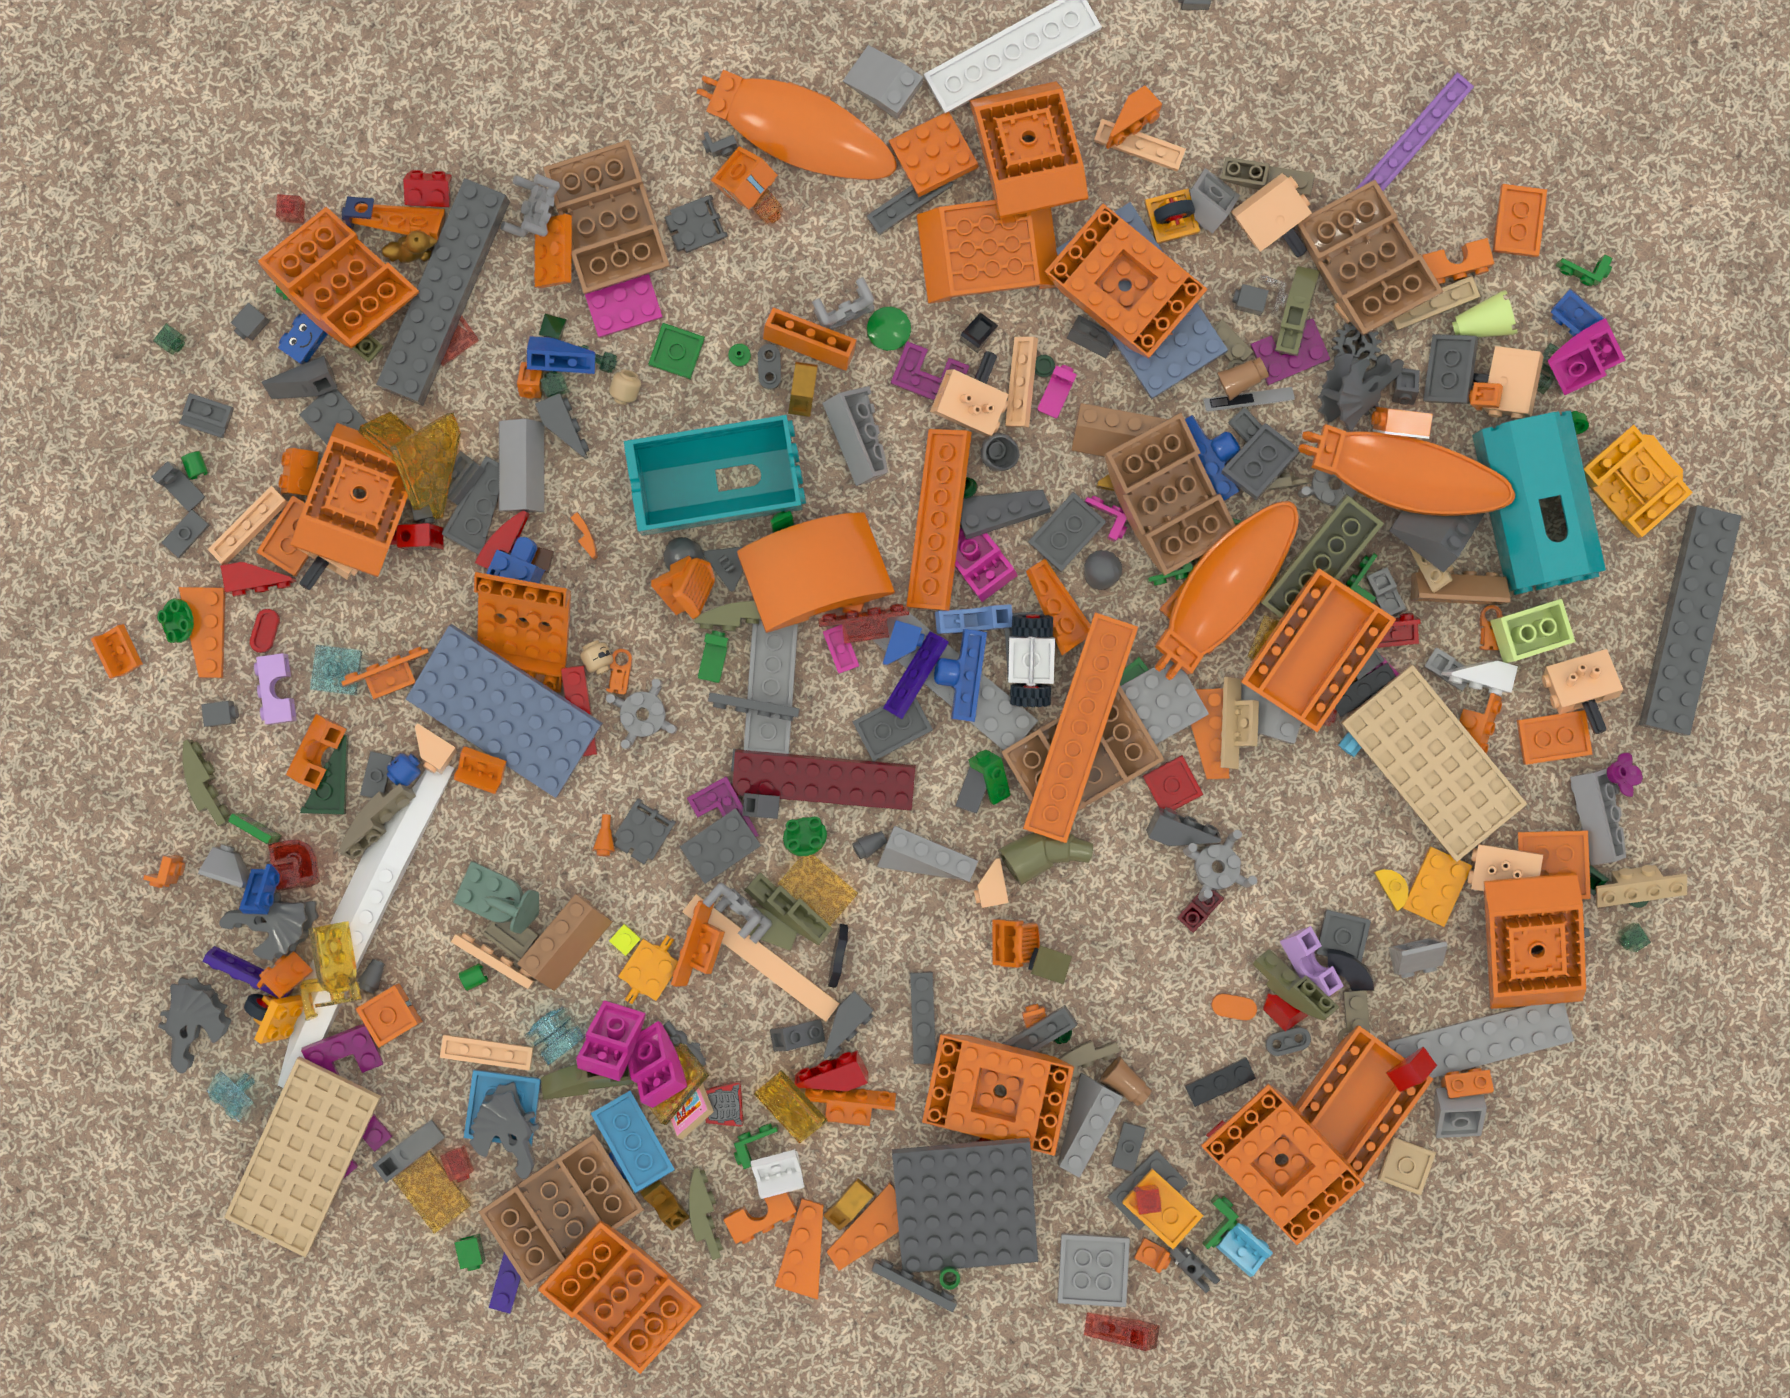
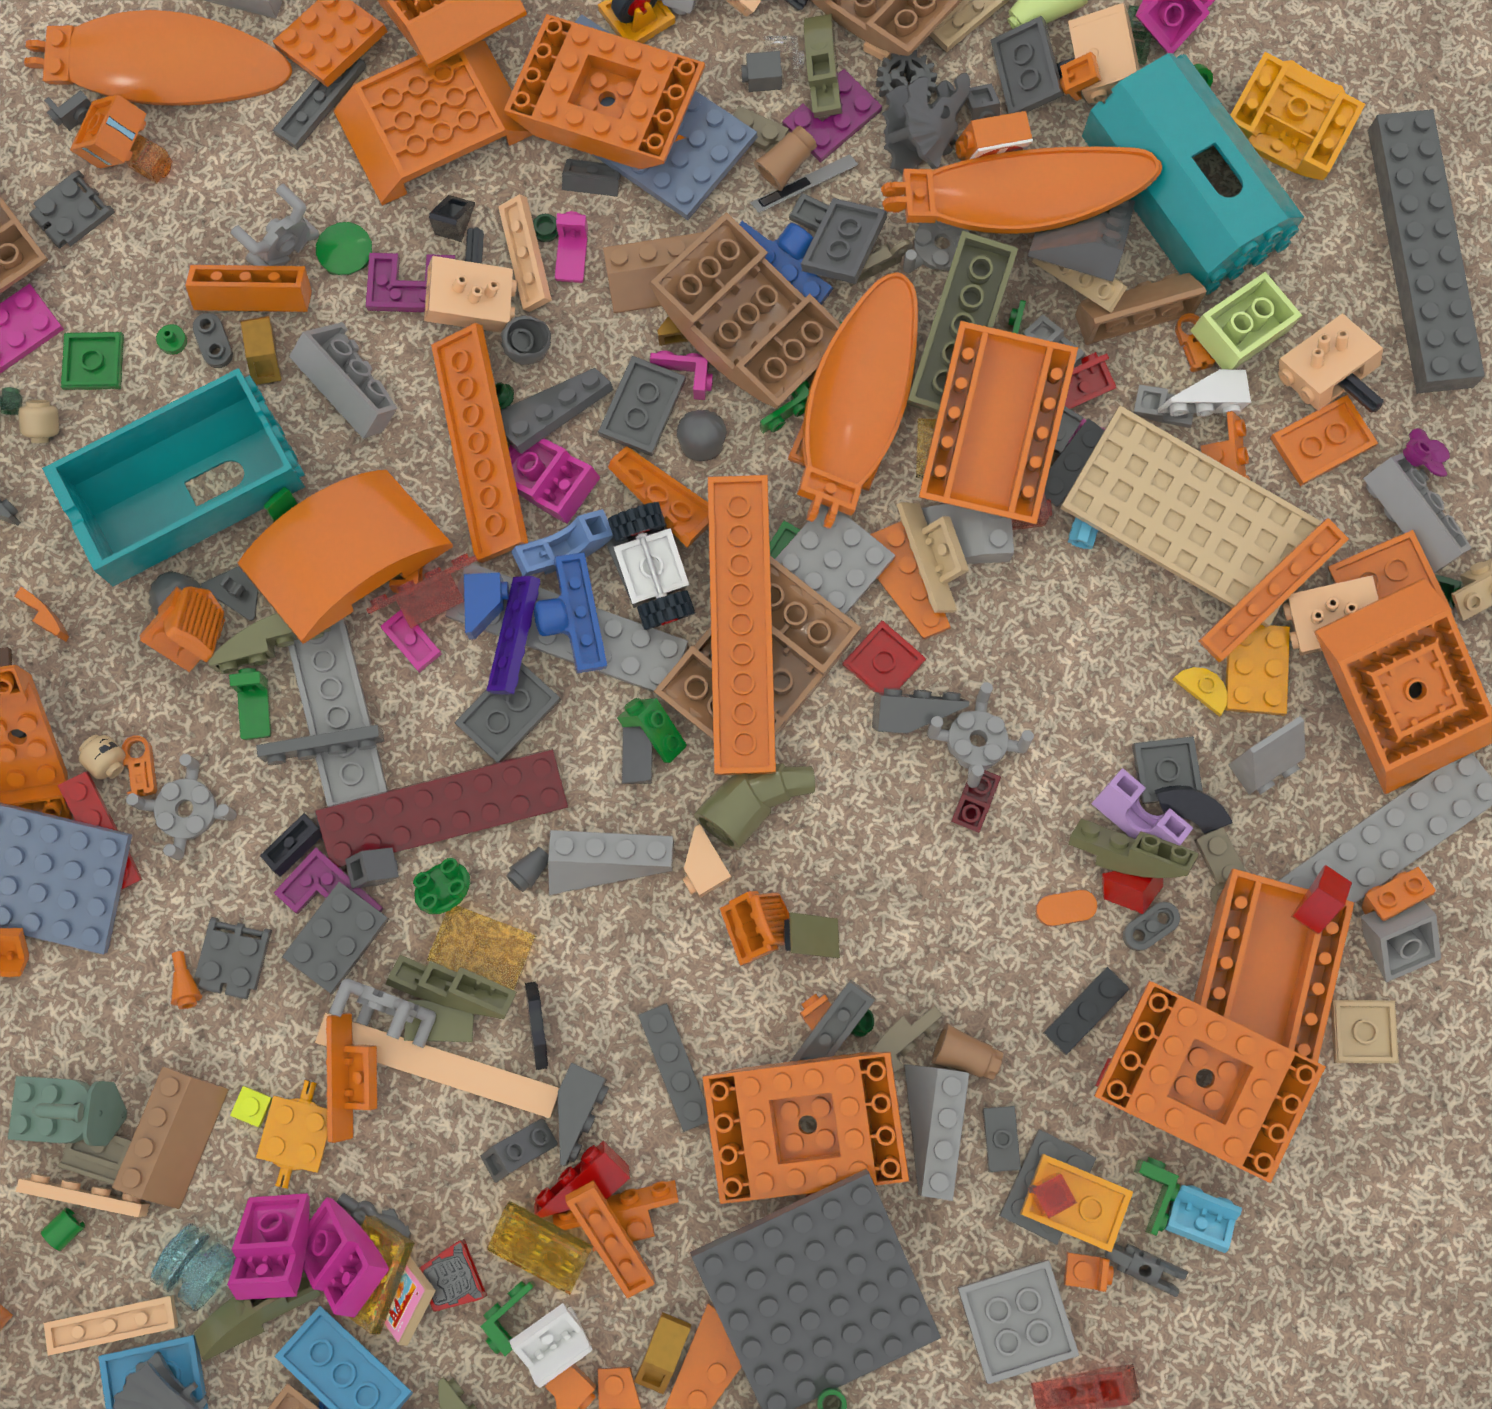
camera: 20 degrees left, 10 degrees down
(710, 768) = (291, 845): none -> black plate
(840, 1119) = (610, 1239): none -> orange plate
(1469, 839) = (1273, 590): none -> orange plate

